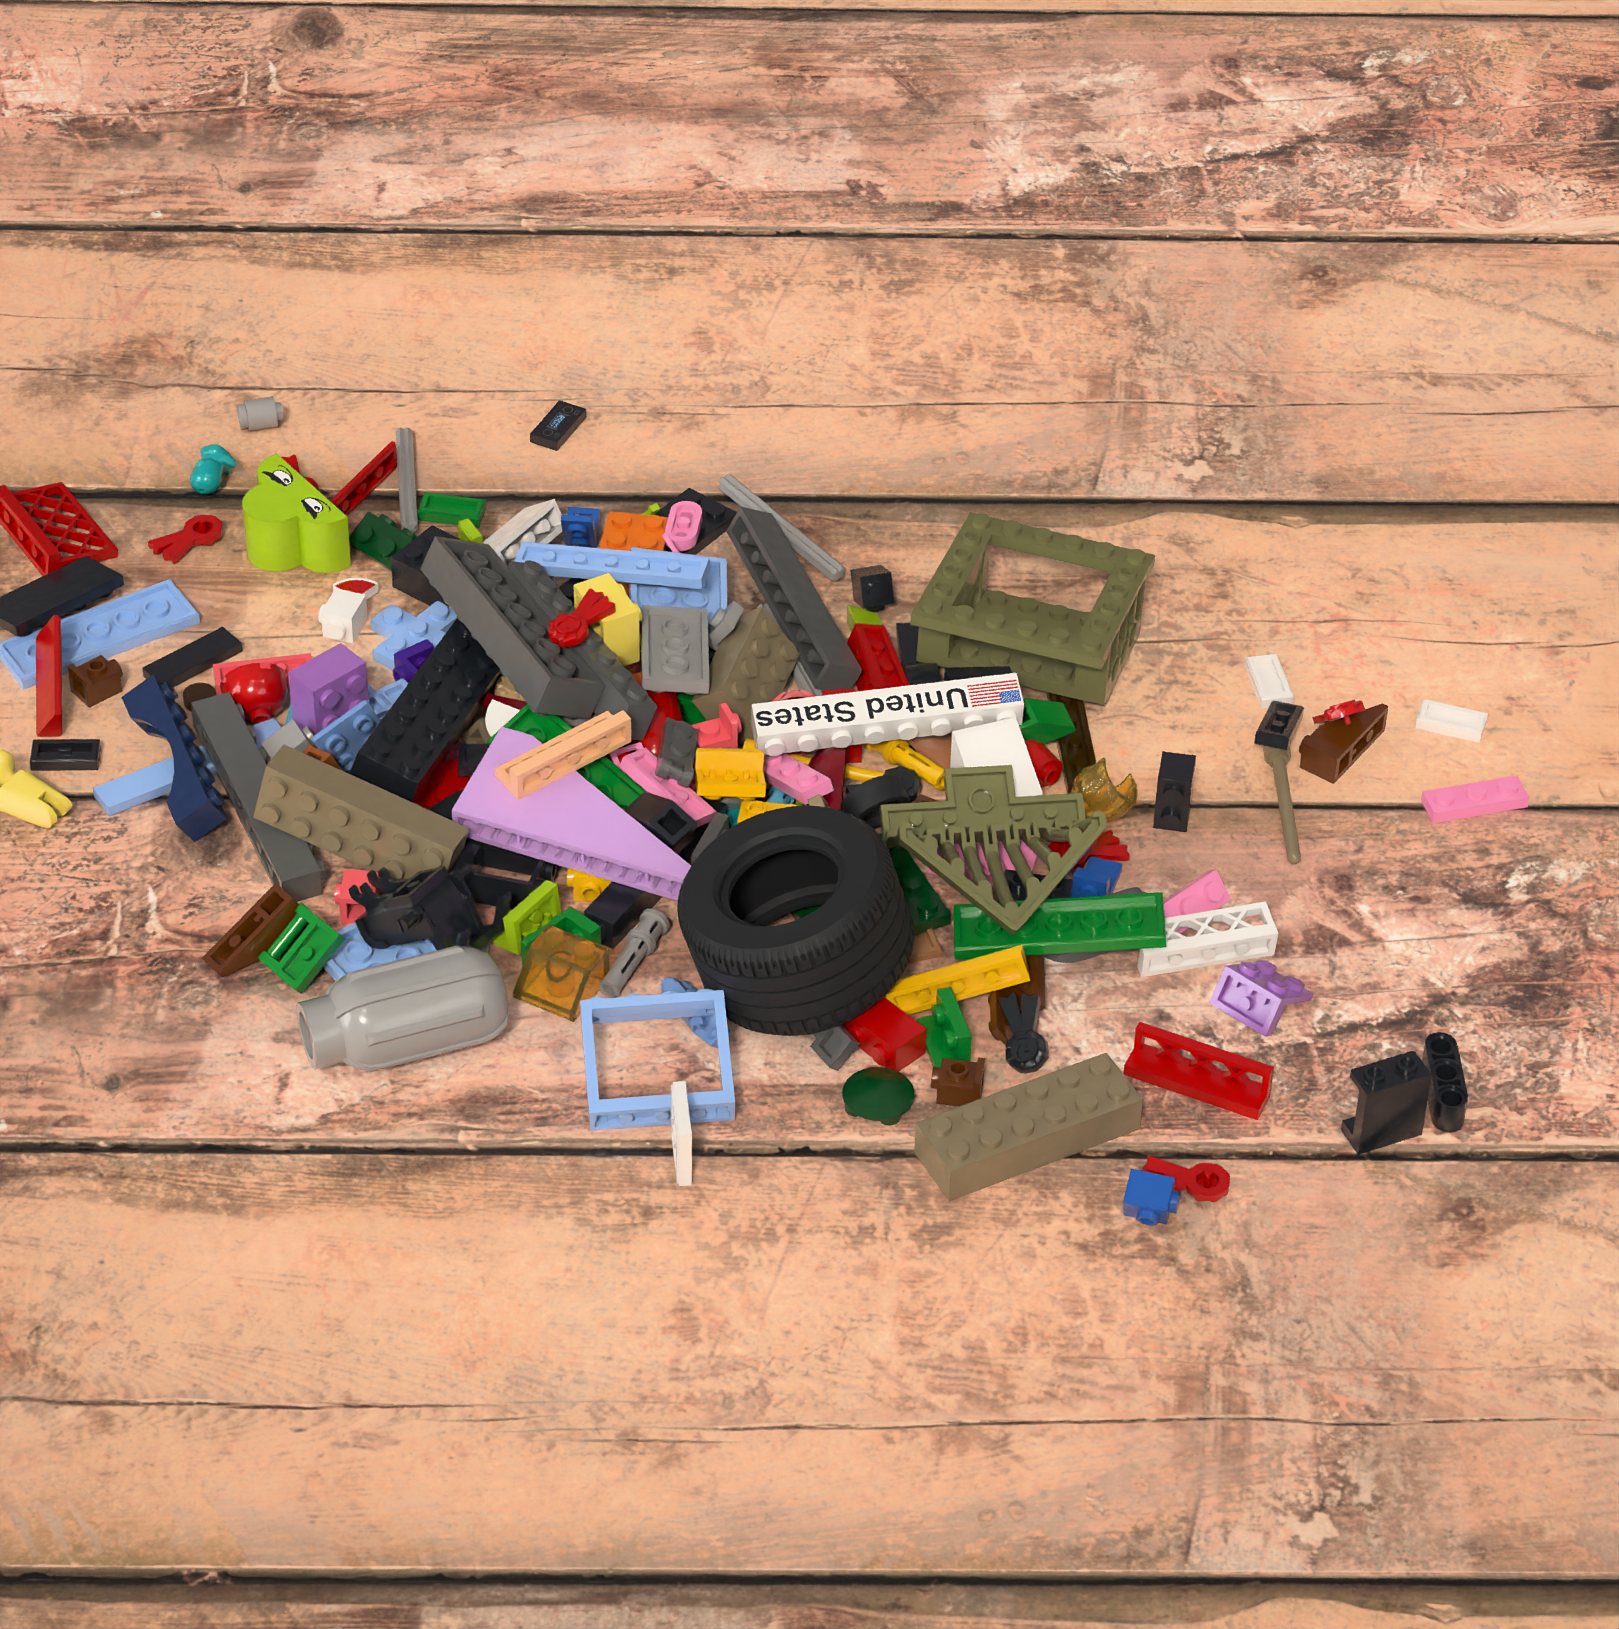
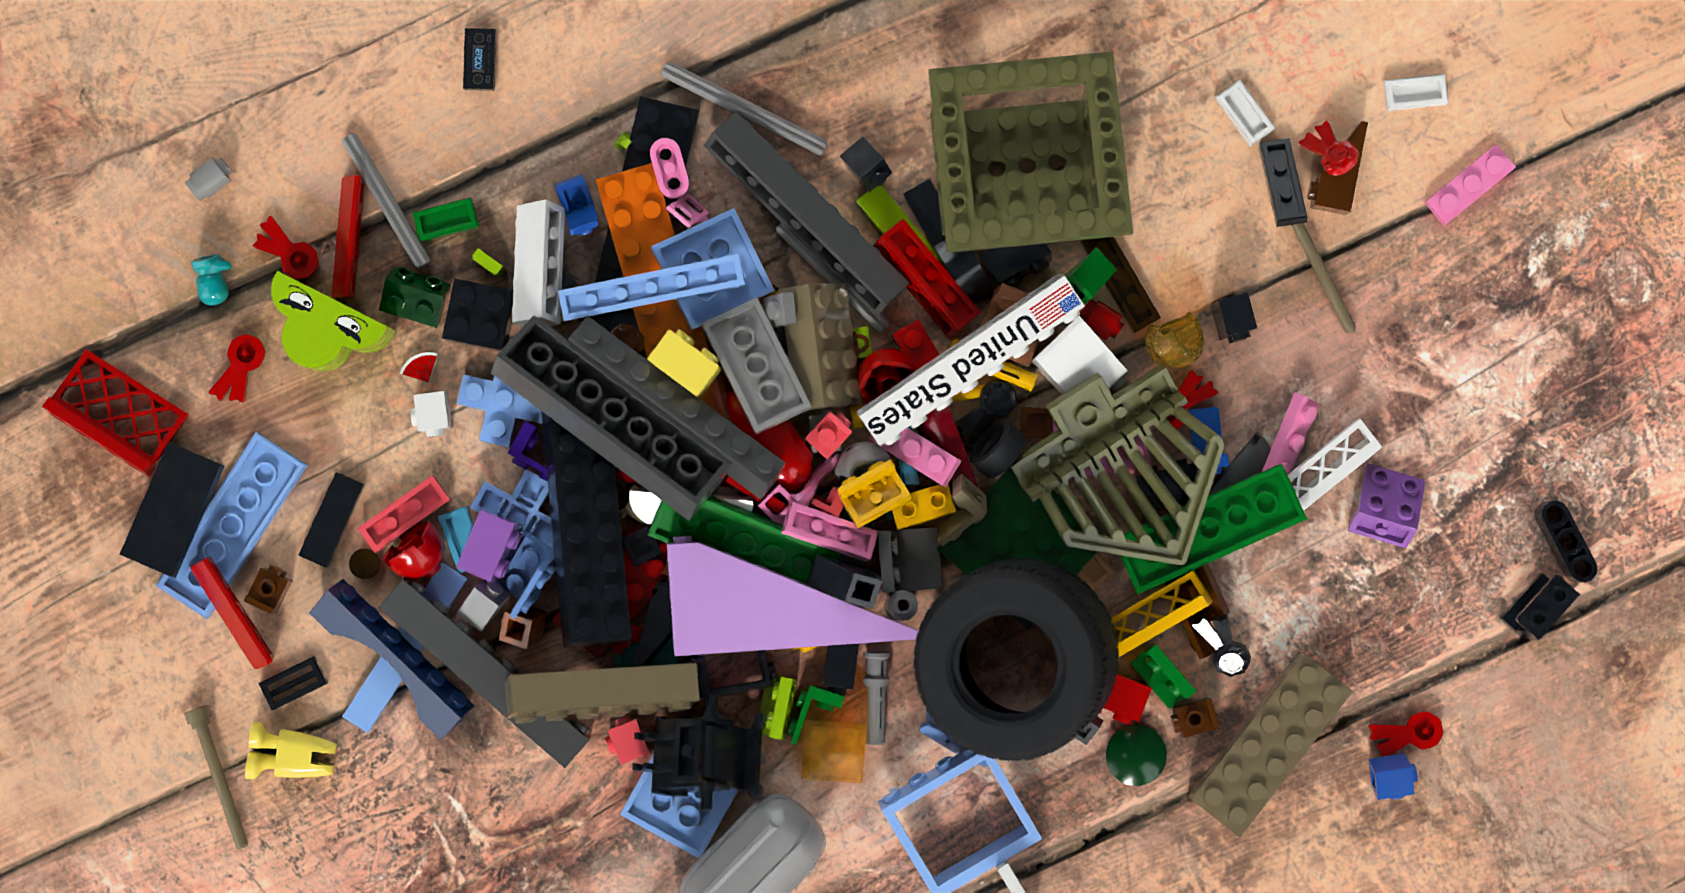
camera: 25 degrees left, 45 degrees up
(253, 932) = (573, 821): reddish brown slope -> none
(308, 952) = (627, 832): green plate -> none
(565, 753) = (747, 562): light nougat fence -> none
(573, 628) = (673, 418): red piece -> none
(677, 751) = (819, 491): dark grey plate -> none
(1199, 1077) = (1372, 621): red fence -> none

